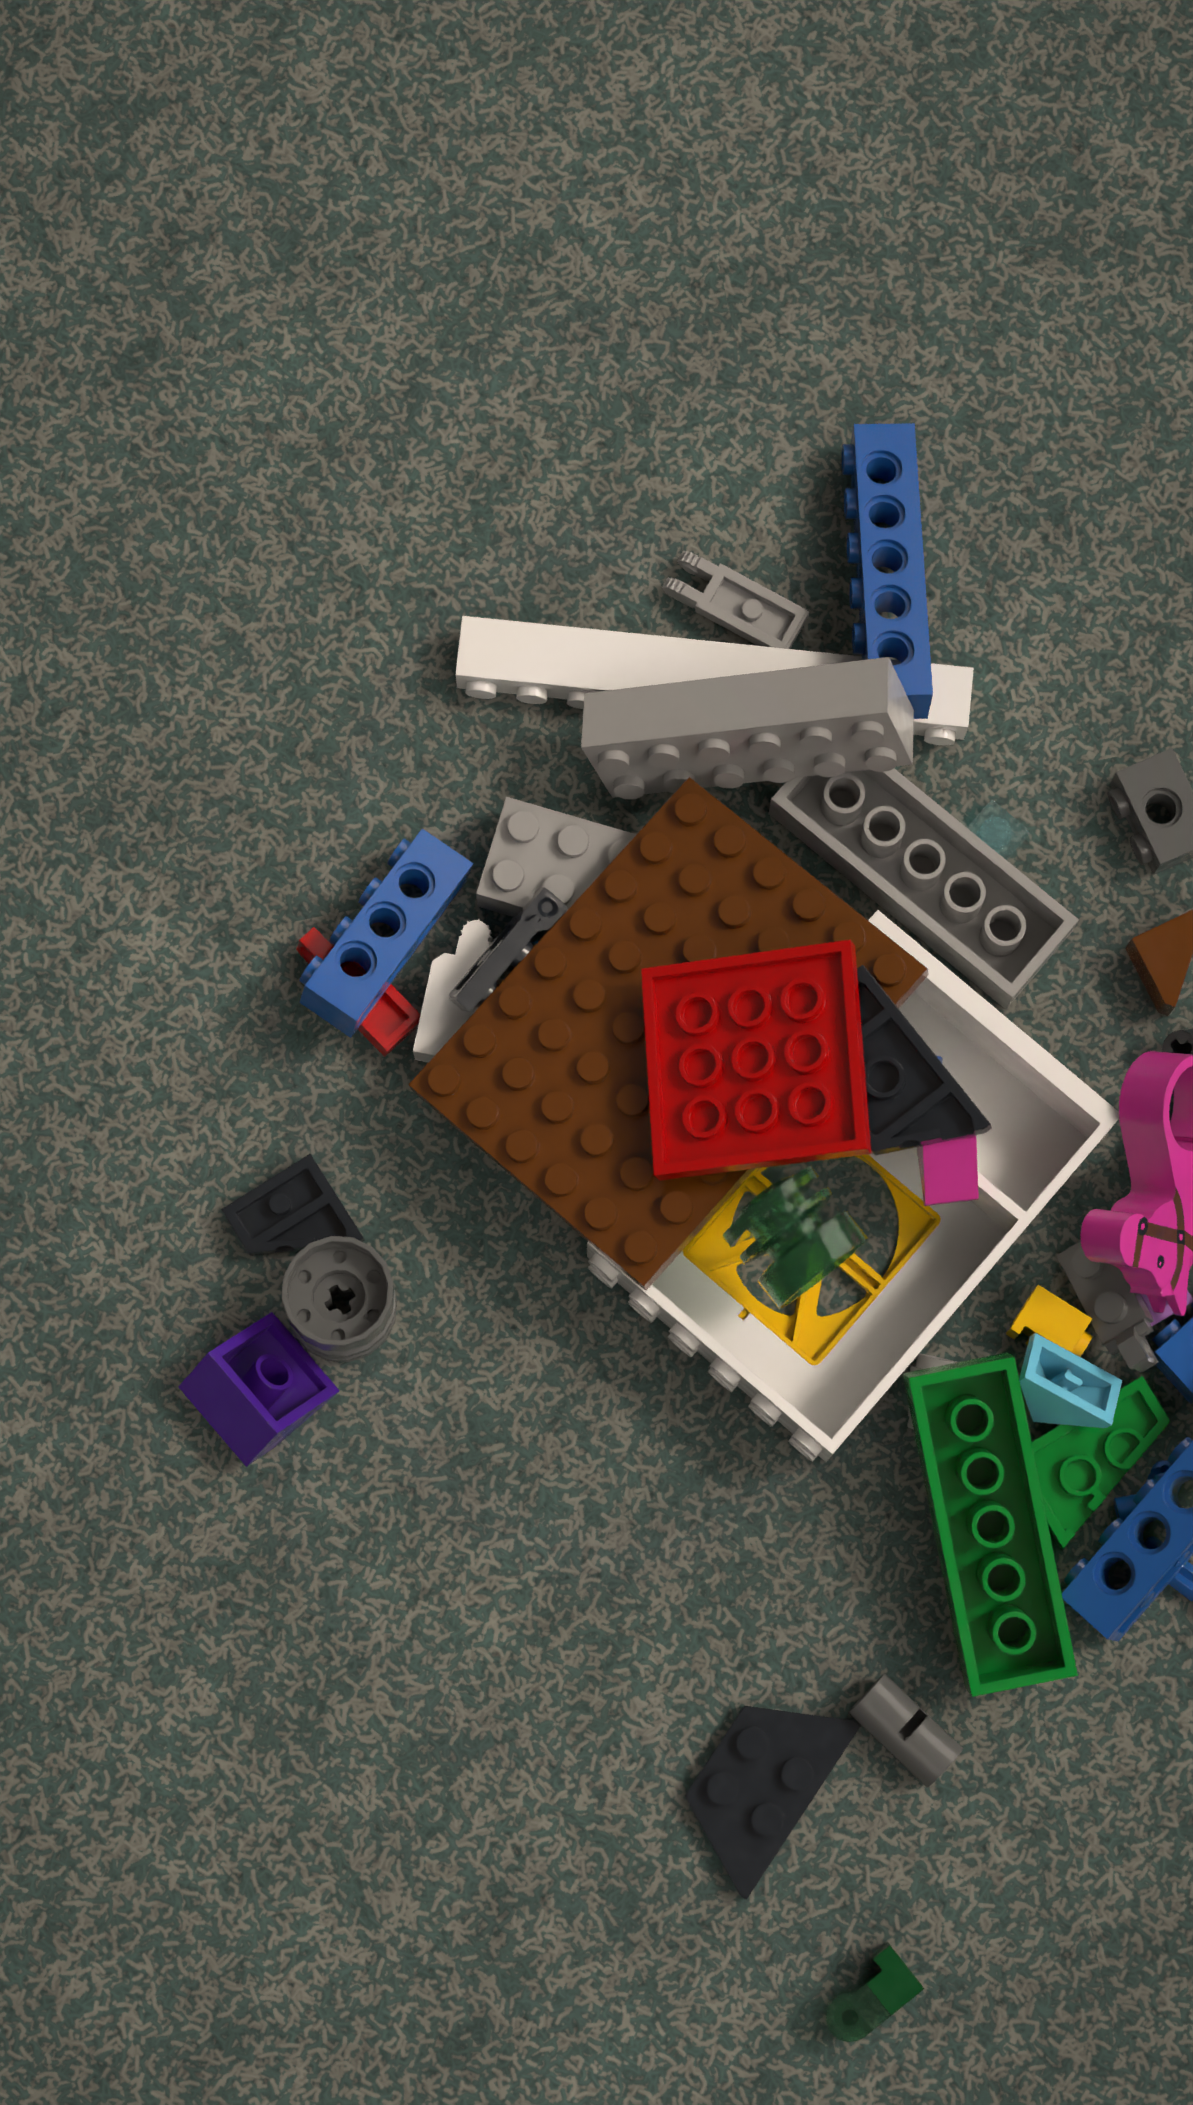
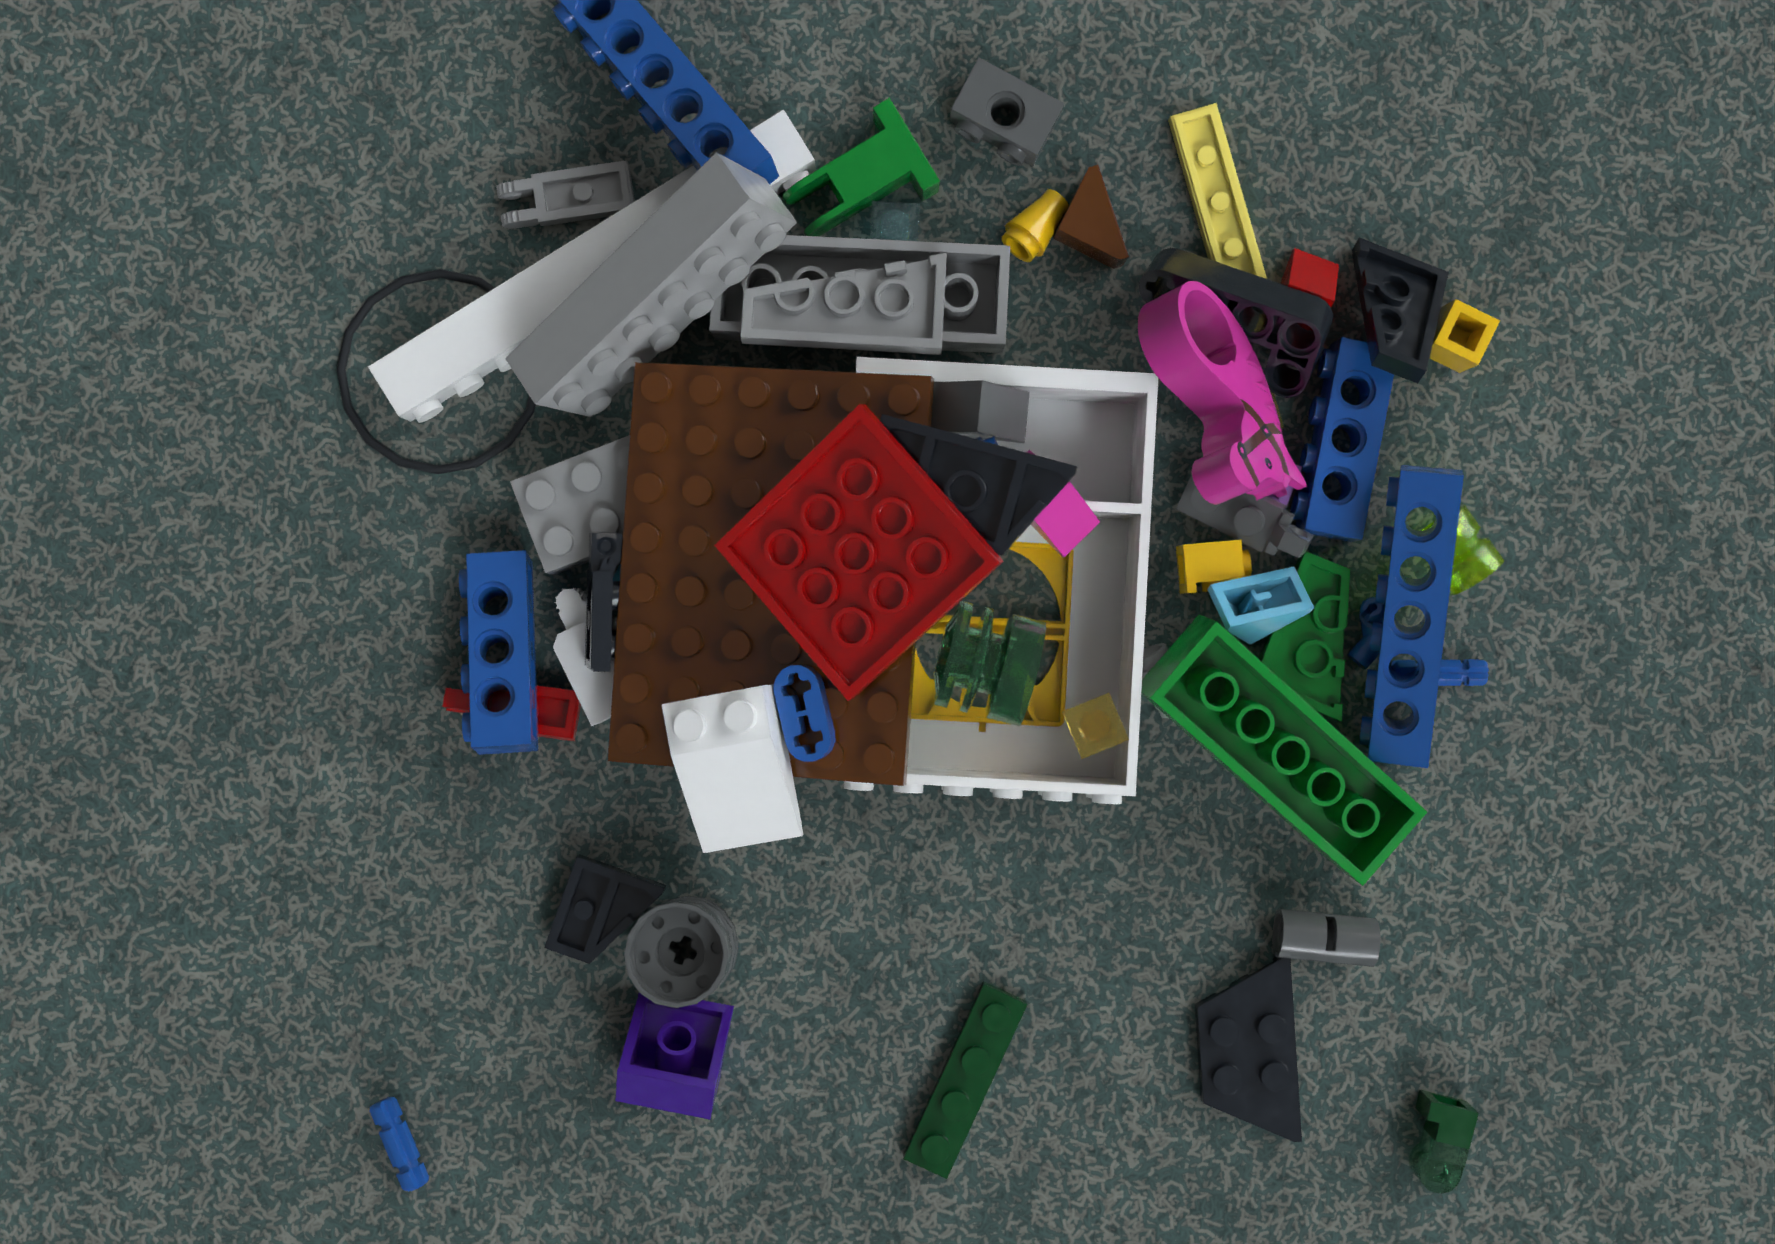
camera: 30 degrees left, 10 degrees up
(412, 655) = (345, 393): none -> black piece
(490, 1611) = (965, 1080): none -> dark green plate
(516, 1161) = (734, 768): none -> white slope
(597, 1156) = (792, 715): none -> blue beam
(844, 1364) = (1095, 725): none -> clear yellow plate
(919, 883) = (865, 310): none -> light grey wing
(950, 1030) = (980, 410): none -> dark grey slope
(1005, 773) = (869, 171): none -> green piece
(1114, 924) = (1034, 227): none -> yellow cone

